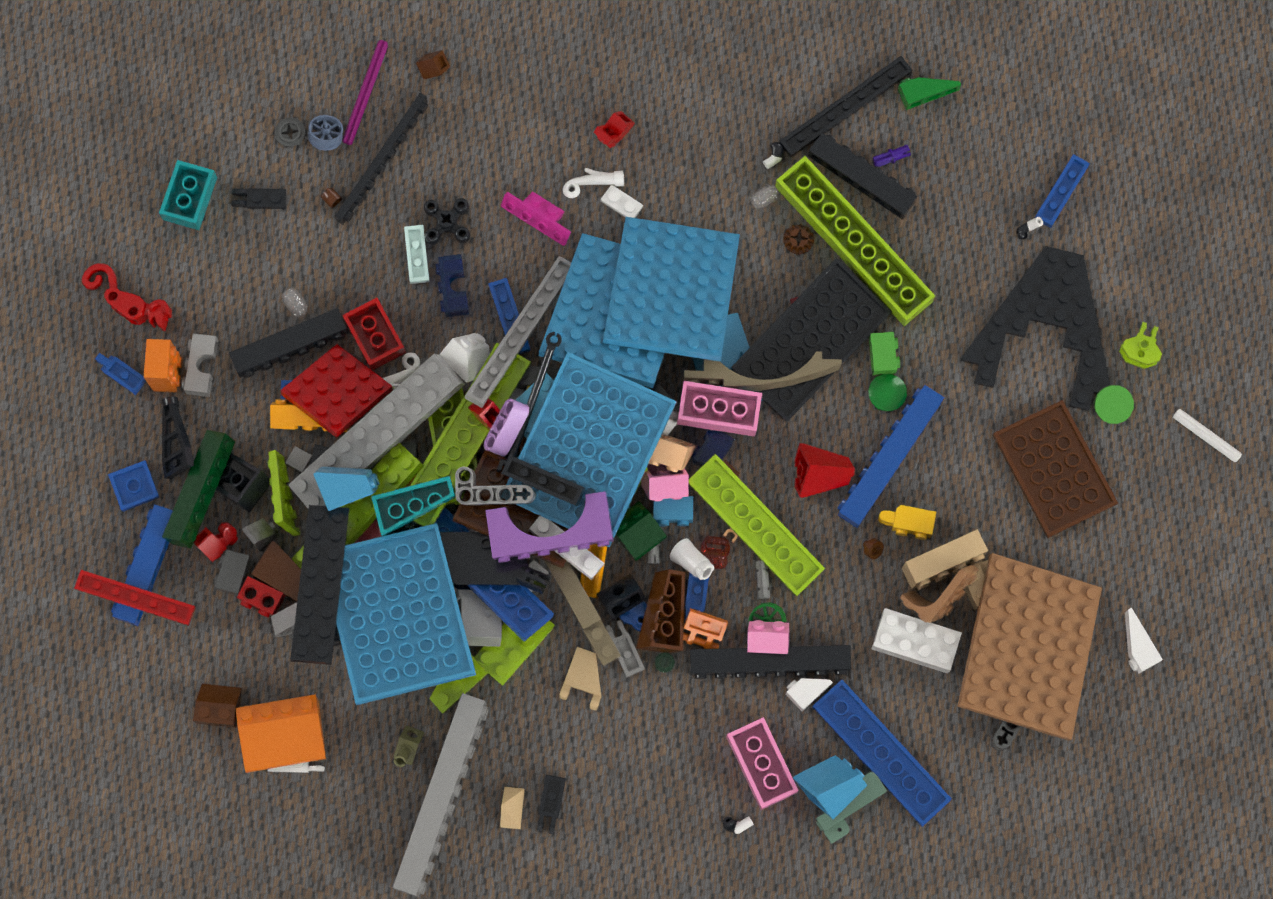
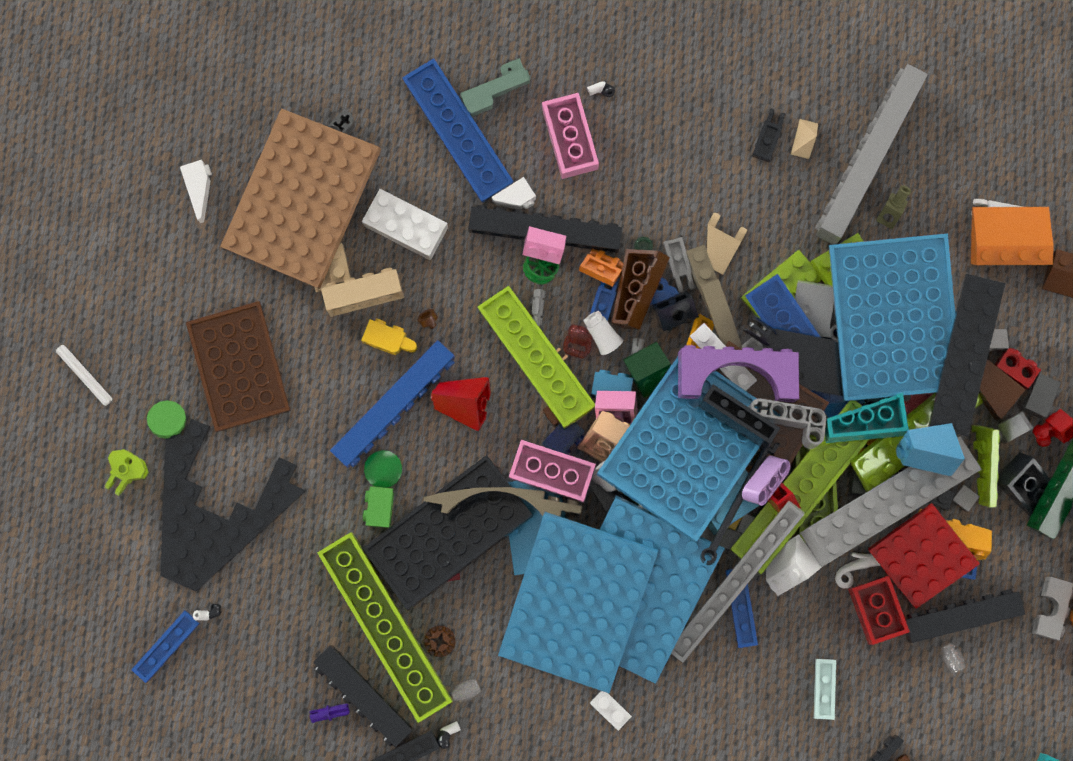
camera: 170 degrees left, 5 degrees up
(442, 227) = (782, 724): black gear -> none
(453, 302) = (796, 665): clear blue arch -> none
(539, 214) = (695, 711): dark pink bracket -> none
(594, 178) = (632, 740): white plant -> none
(831, 784) = (510, 104): dark azure slope -> none
(934, 611) = (385, 248): medium nougat bracket -> none

